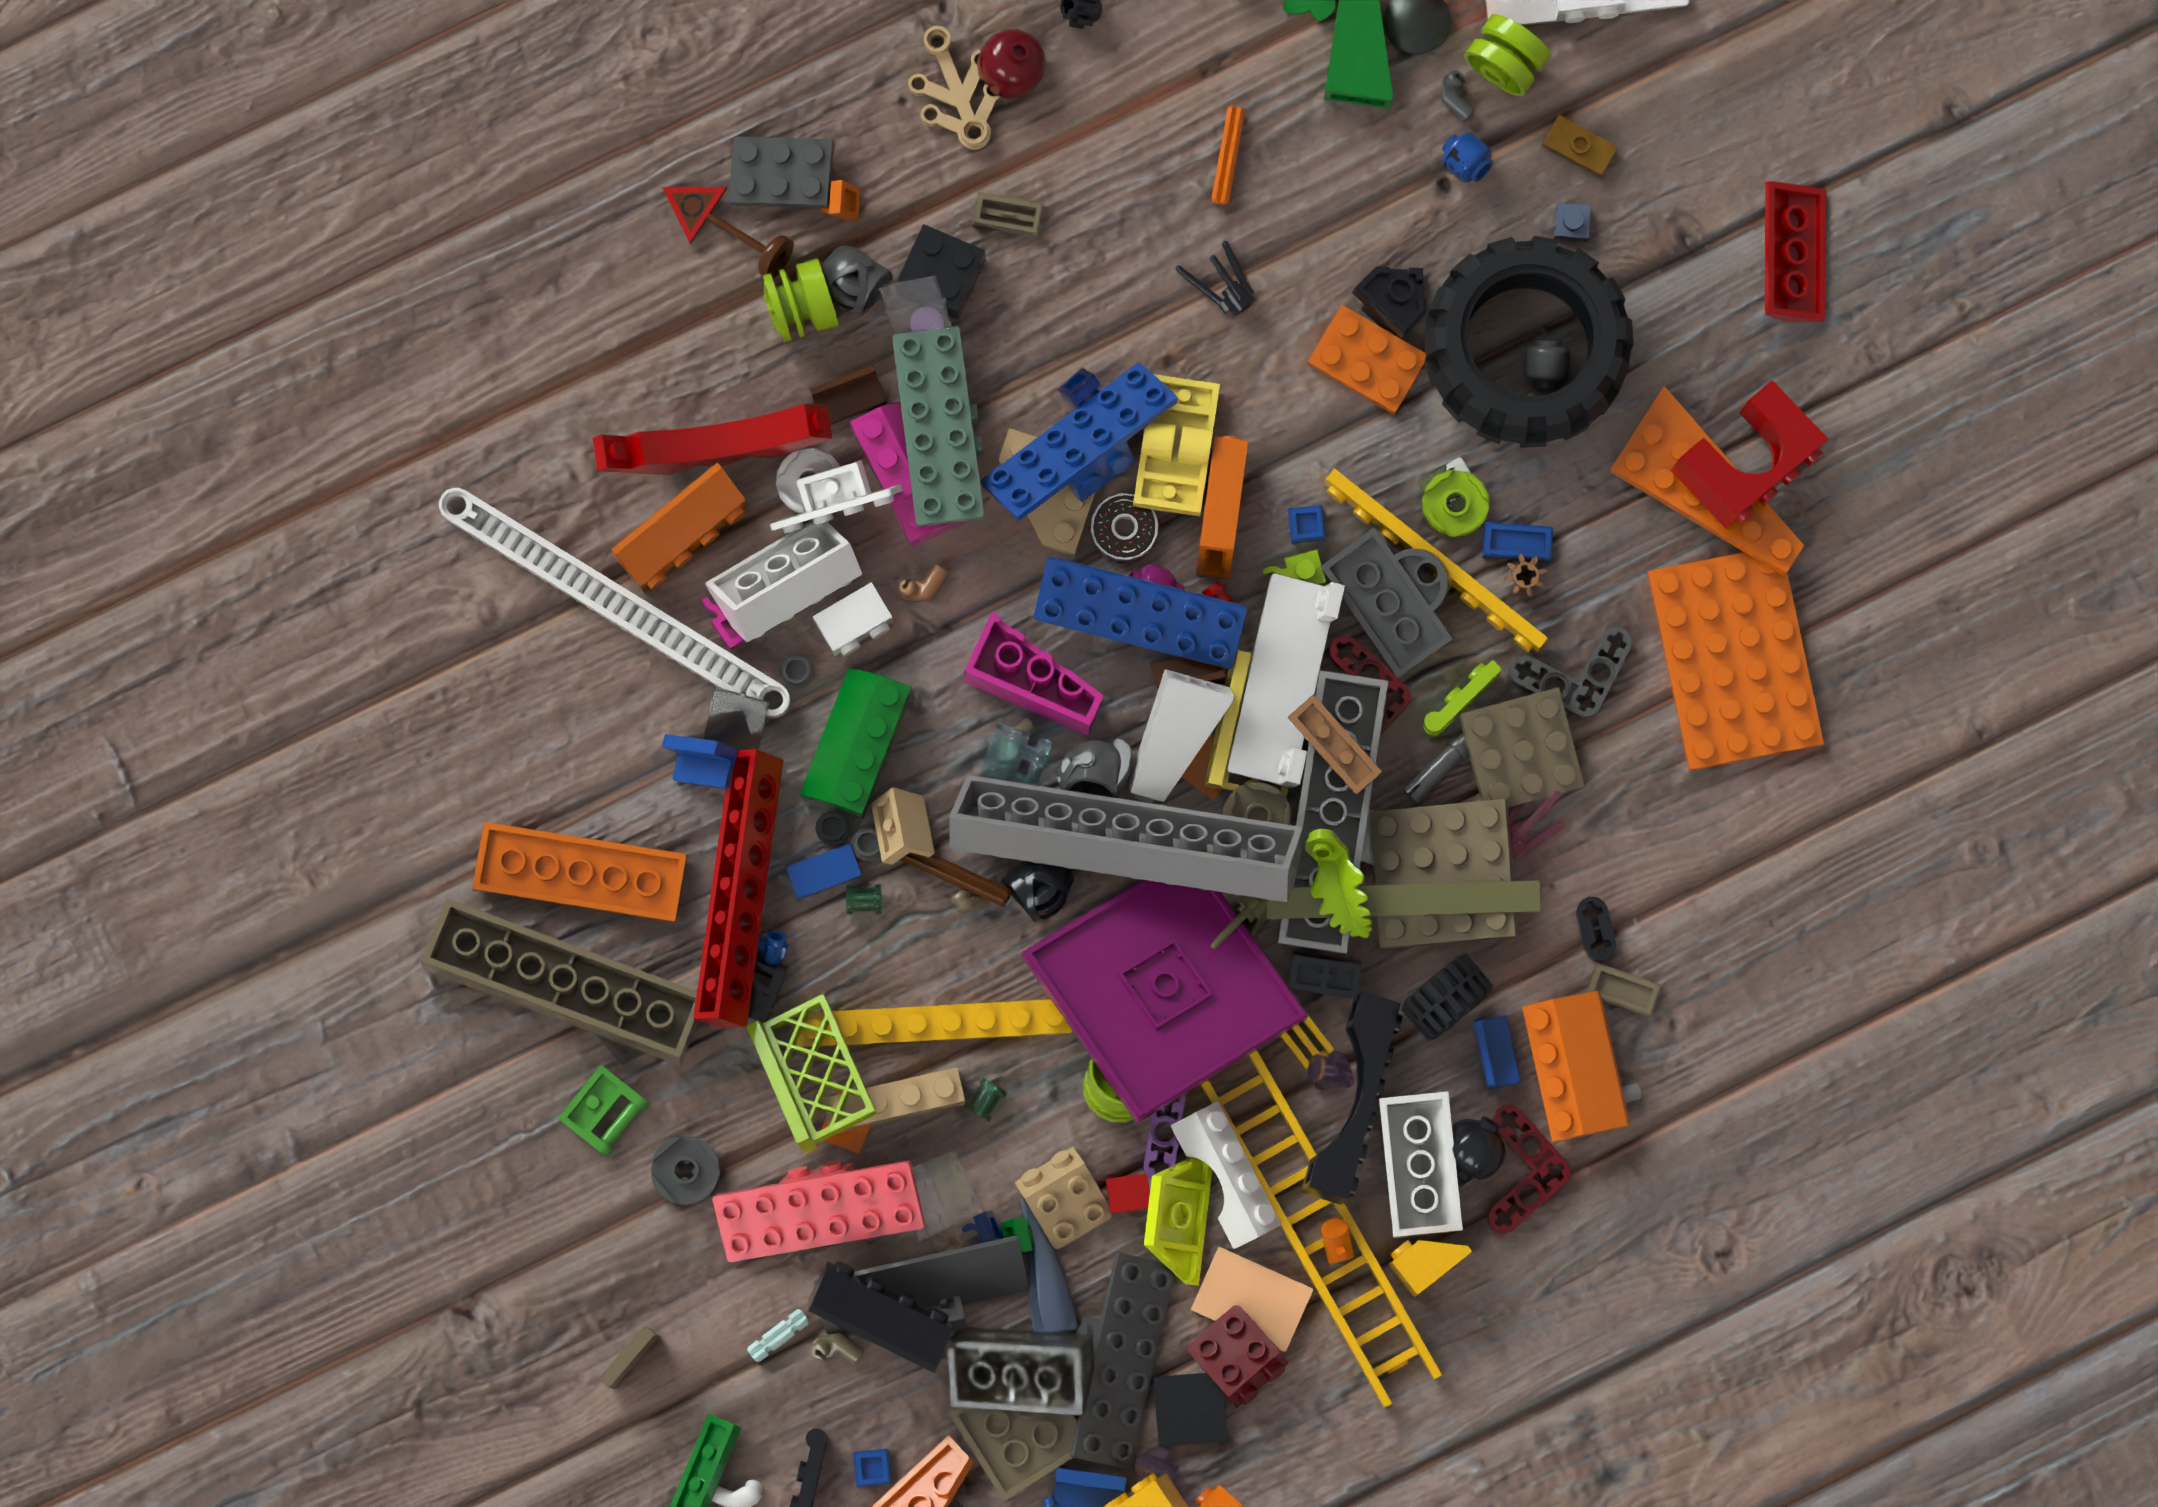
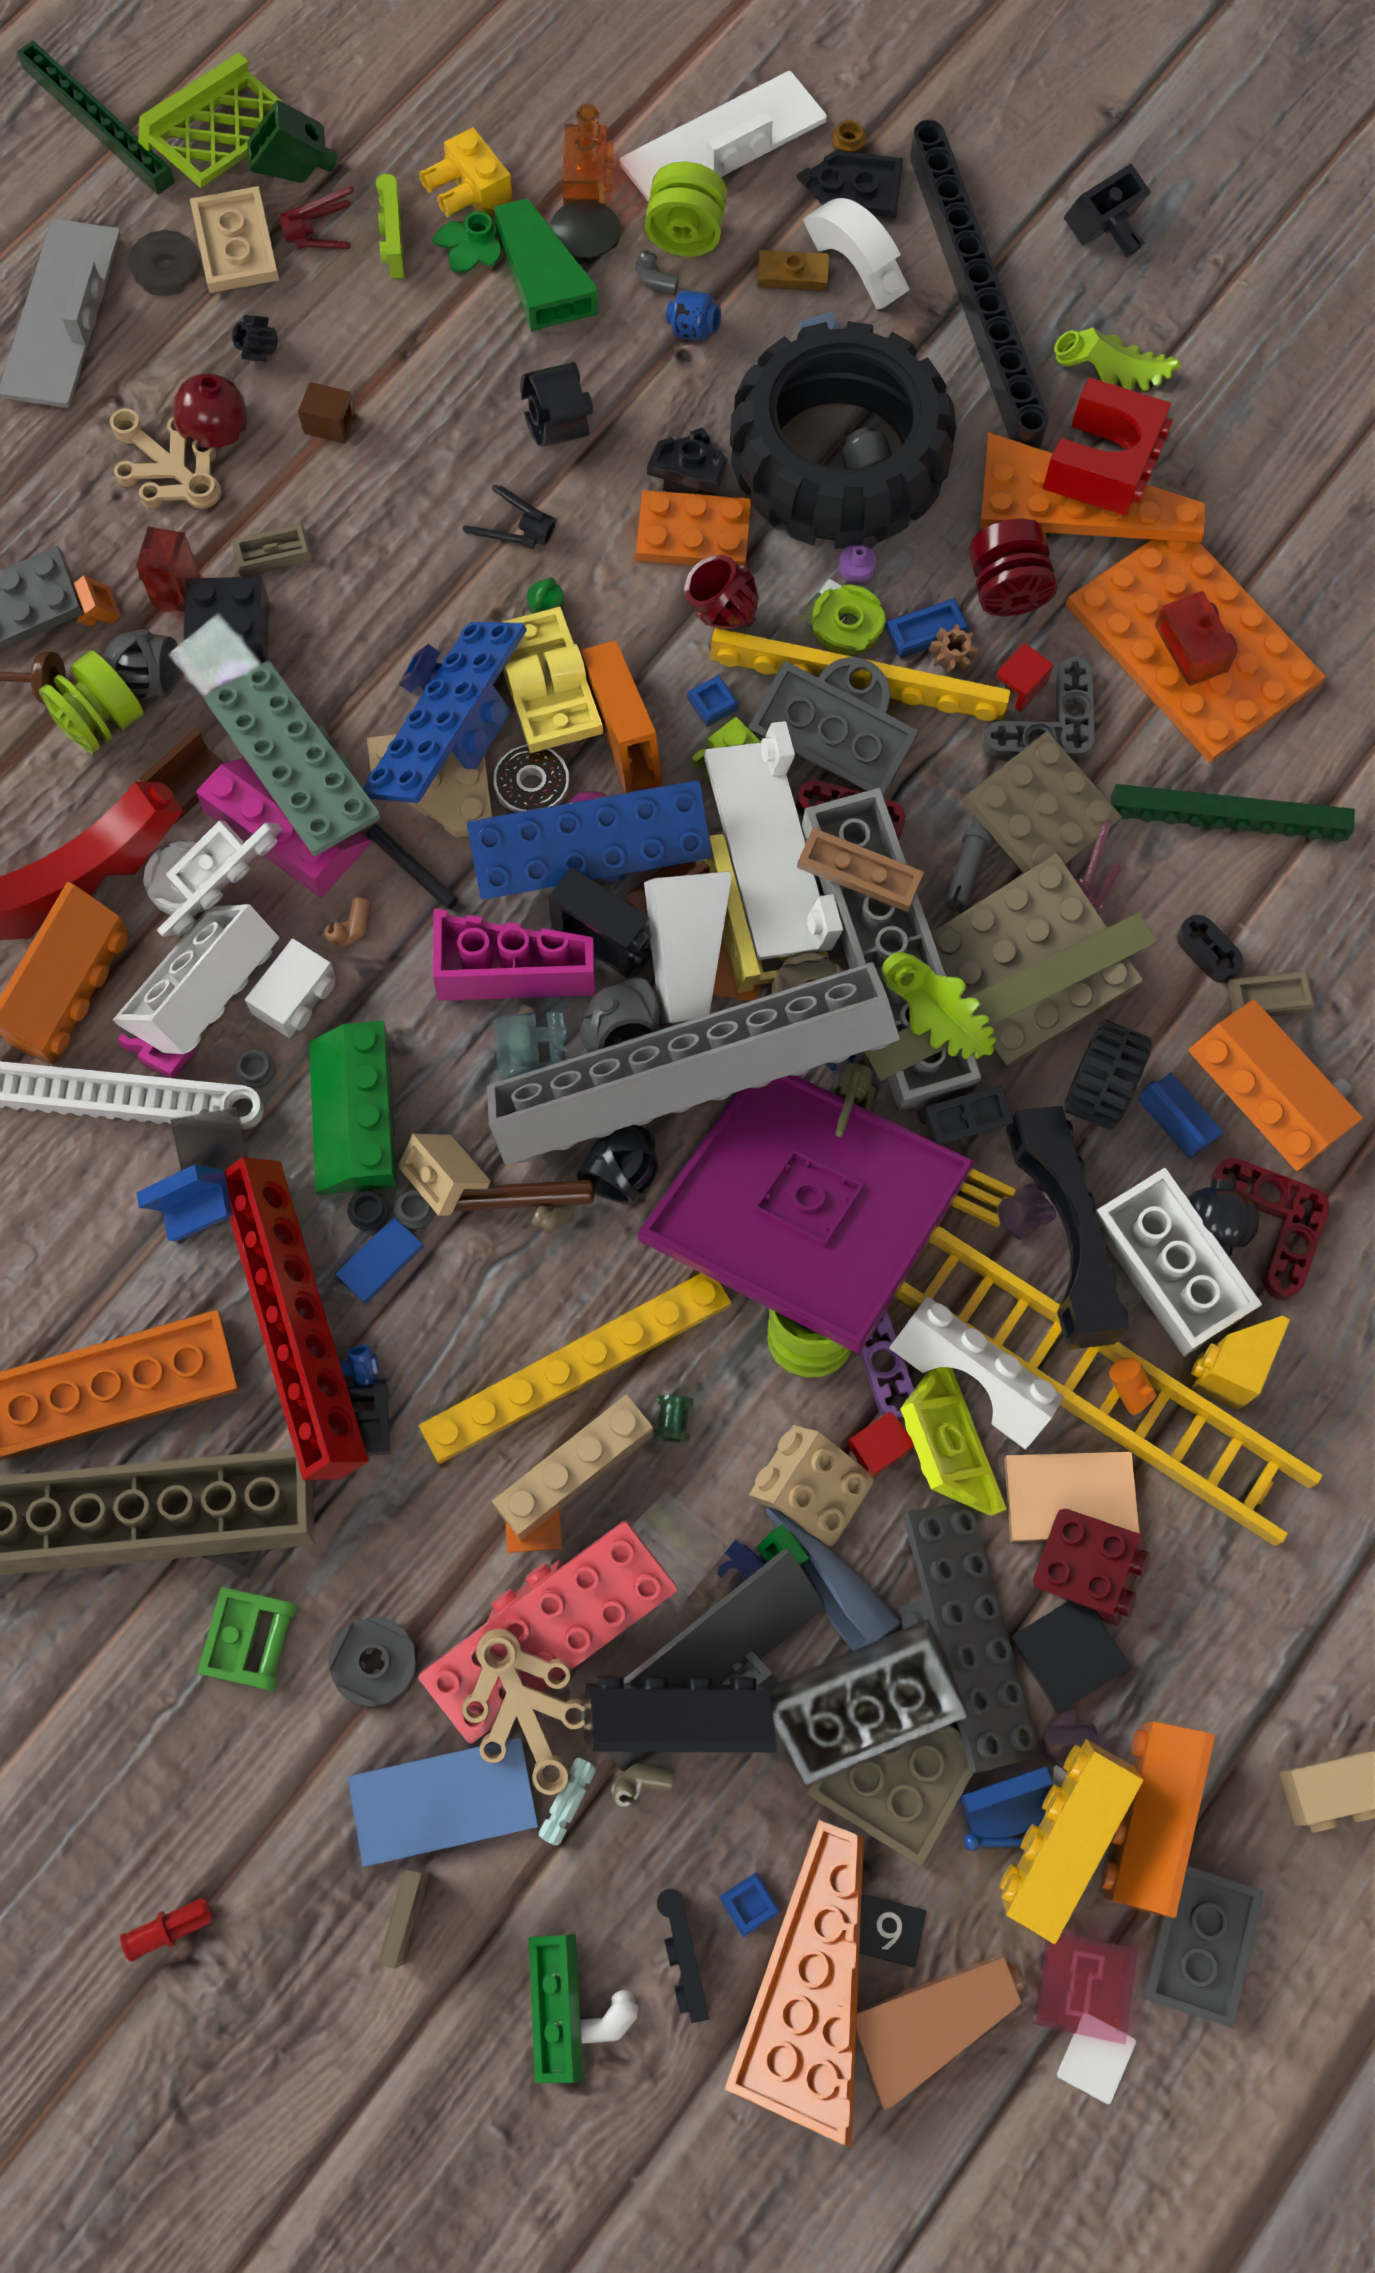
camera: 30 degrees left, 10 degrees down
(462, 1285) = (166, 1929): none -> red axle
(690, 1292) = (441, 1803): none -> medium blue tile
(777, 1253) = (522, 1702): none -> tan plant
(784, 1084) = (450, 1511): lime fence -> none
(864, 899) = (437, 1267): clear green bush -> none
(911, 206) = (164, 566): none -> clear red brick
(996, 561) = (412, 867): none -> black bar
(1110, 108) = (326, 412): none -> reddish brown panel
(1117, 684) = (589, 910): none -> black window
(1213, 367) = (545, 596): none -> green tile
(1228, 155) = (463, 410): orange axle -> none
(1303, 196) = (556, 404): none -> black brick
(1352, 444) = (722, 593): none -> dark red helmet
(1459, 700) = (954, 790): lime plate -> none
(1486, 463) = (857, 564): none -> medium lavender tile
(1570, 626) = (1025, 674): none -> red panel
(1610, 524) = (1012, 567): none -> dark red wheel
(1643, 156) = (864, 241): none -> white arch
(1678, 824) = (1233, 812): none -> dark green piece
(1680, 83) = (859, 177): none -> black tile
(1701, 25) = (848, 137): none -> pearl gold plate
(1725, 665) = (1196, 638): none -> clear red brick
(1739, 224) = (978, 285): none -> black beam
(1795, 252) = (1043, 272): red slope -> none
(1812, 366) = (1113, 360): none -> lime plant
(1883, 221) = (1107, 209): none -> black brick

